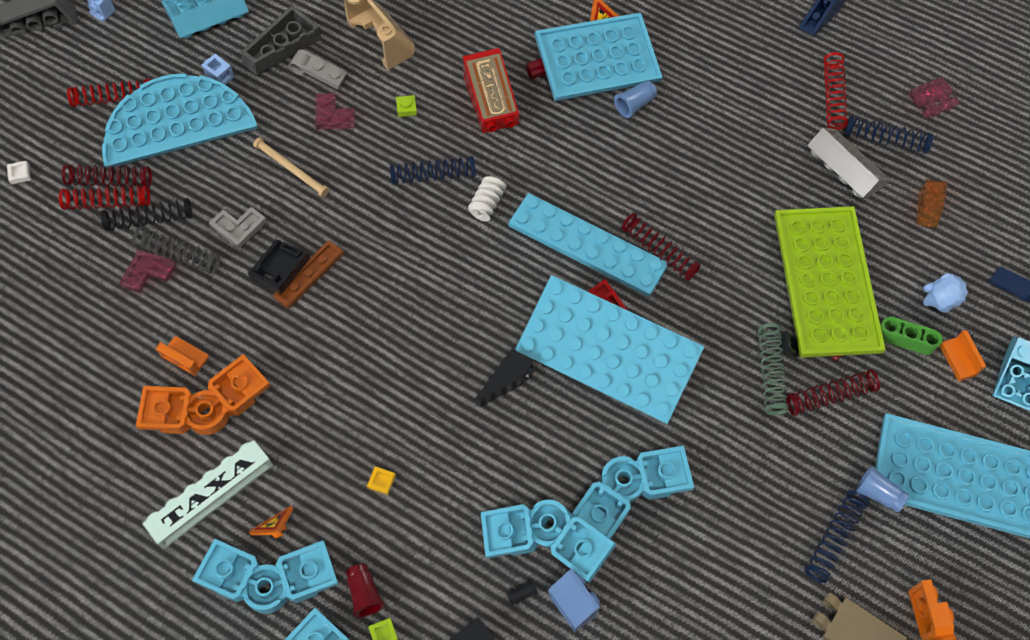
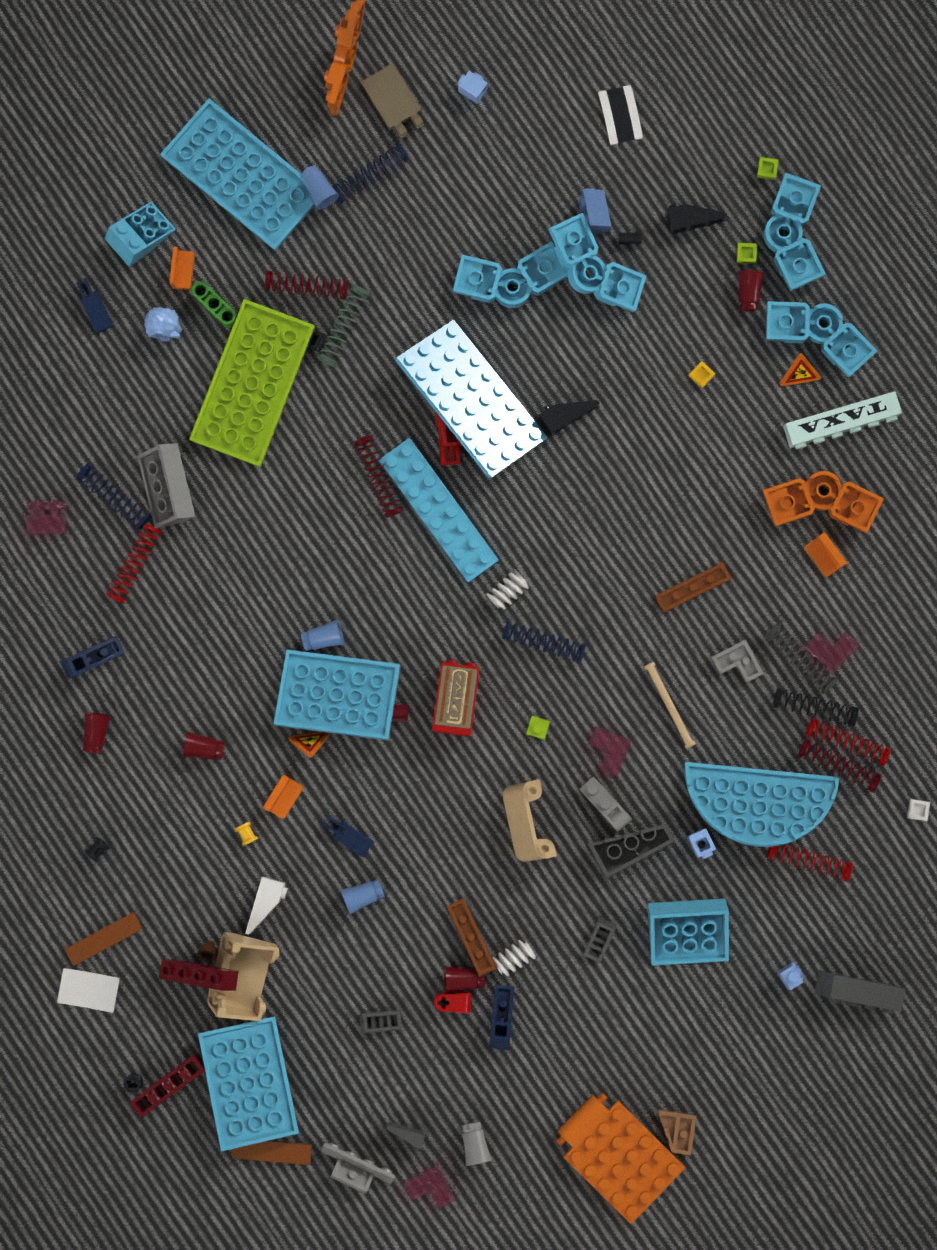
camera: 155 degrees left, 20 degrees up
(282, 263) = (713, 606): black container -> none
(931, 203) = (119, 413): clear orange slope -> none

